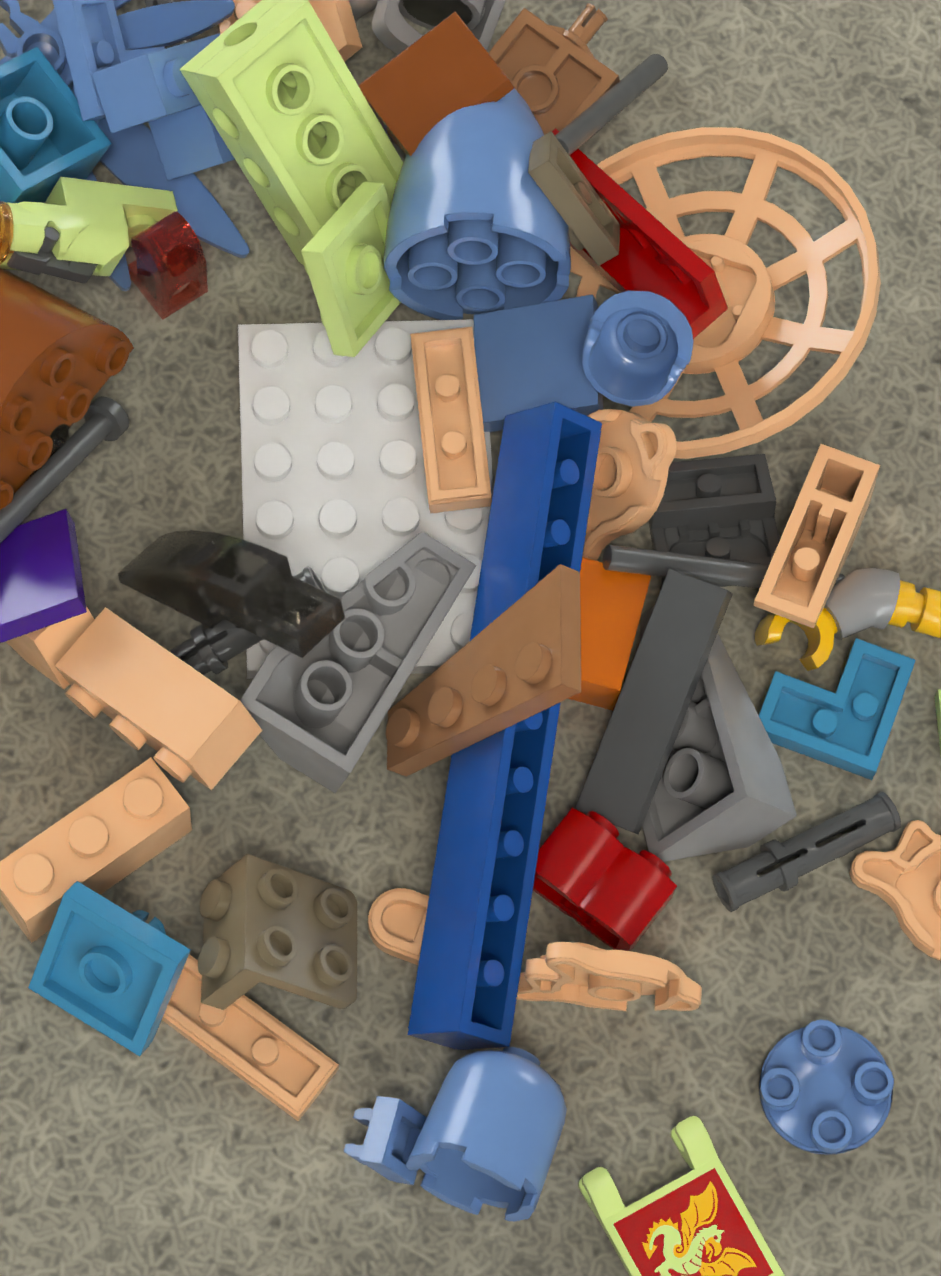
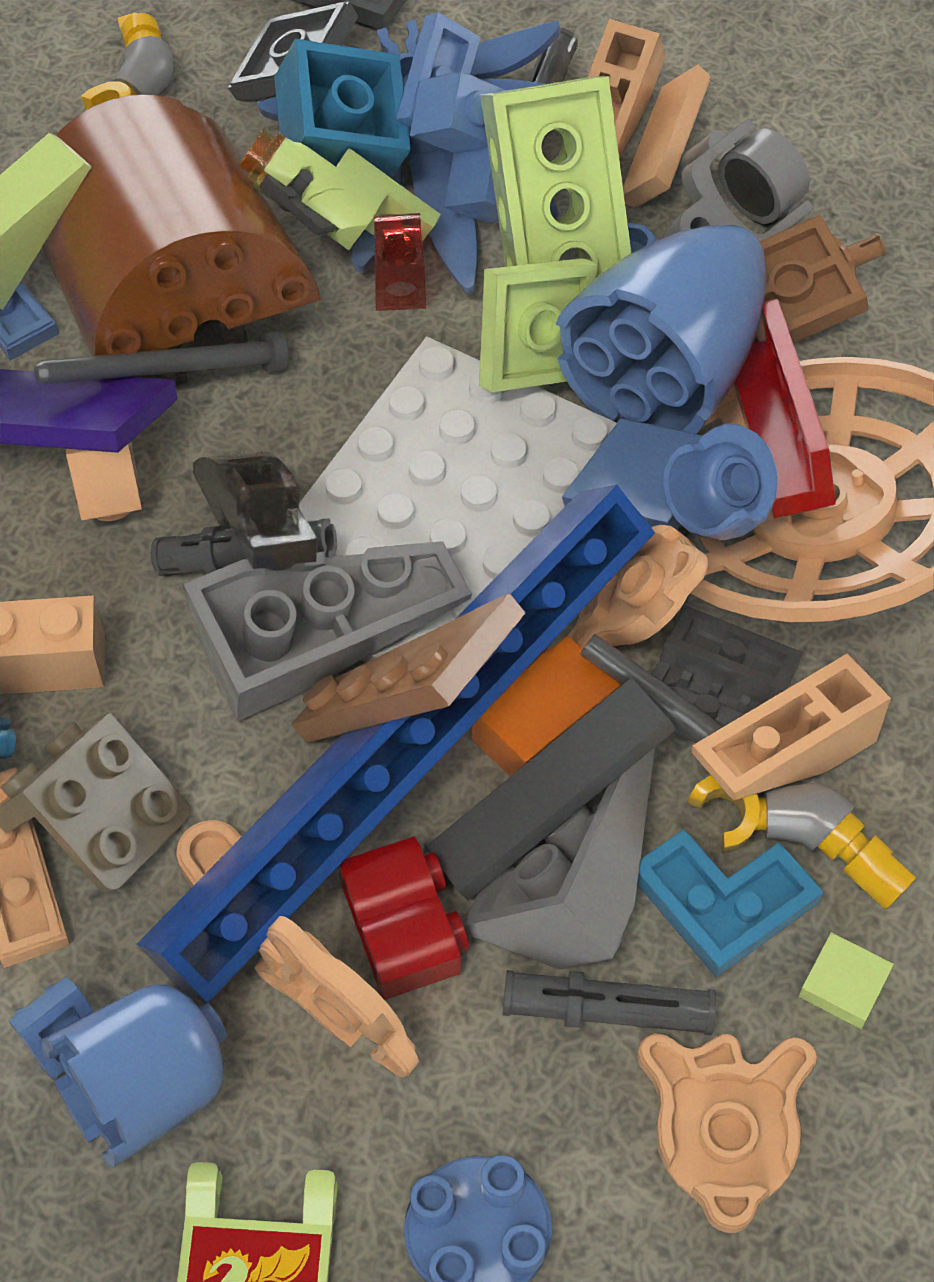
camera: 40 degrees right, 10 degrees down
(156, 700) = (128, 556): light nougat brick -> none
(432, 80) = (688, 200): dark orange slope -> none
(451, 420) = (539, 479): light nougat tile -> none
(574, 198) = (749, 347): dark tan plate -> none
(612, 103) = (836, 310): dark grey bar -> none

